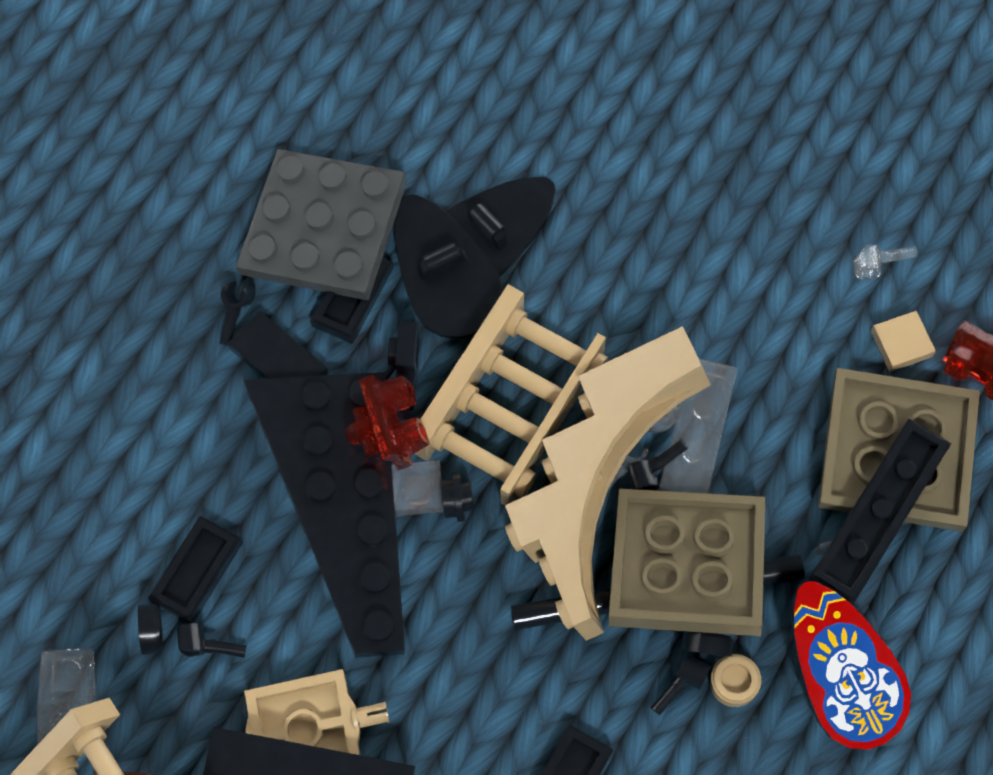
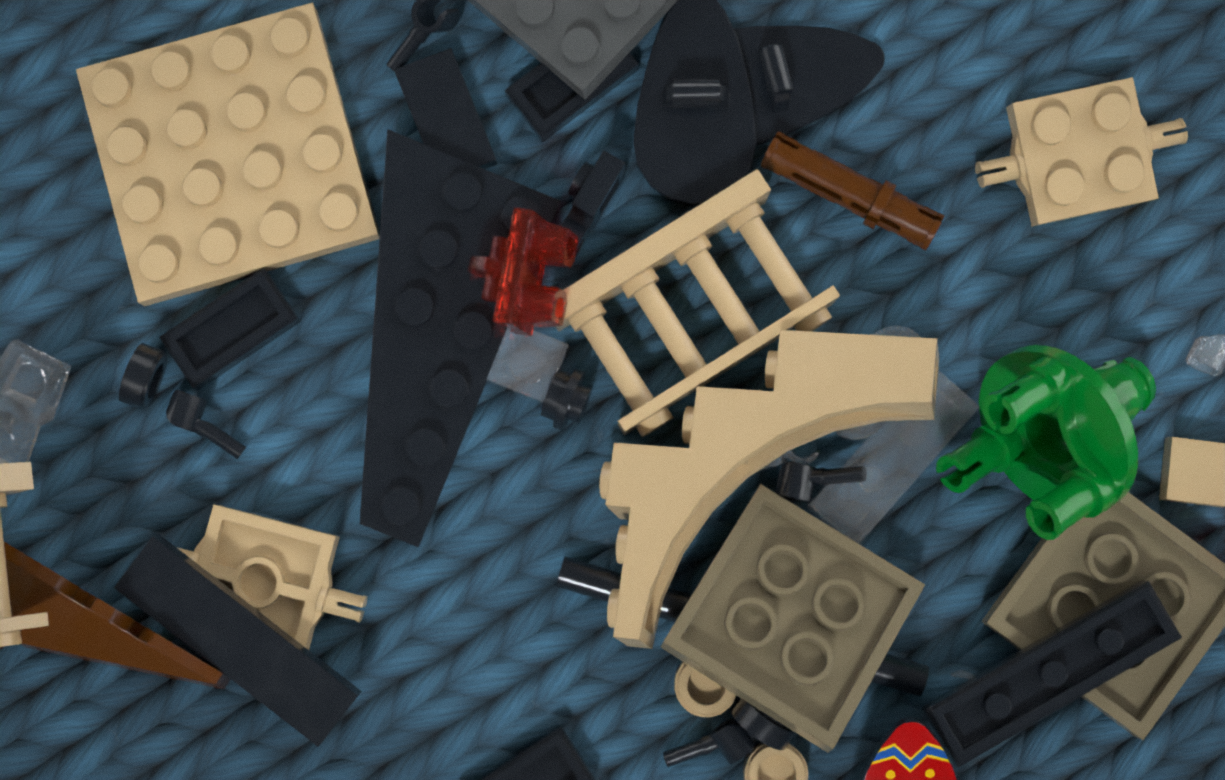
camera: 25 degrees right, 15 degrees up
(137, 455) = (227, 154): none -> tan plate
(578, 273) = (859, 194): none -> reddish brown pin
(654, 648) = (700, 694): none -> tan tile
(713, 180) = (1081, 152): none -> tan plate
(792, 352) = (1056, 434): none -> green piece

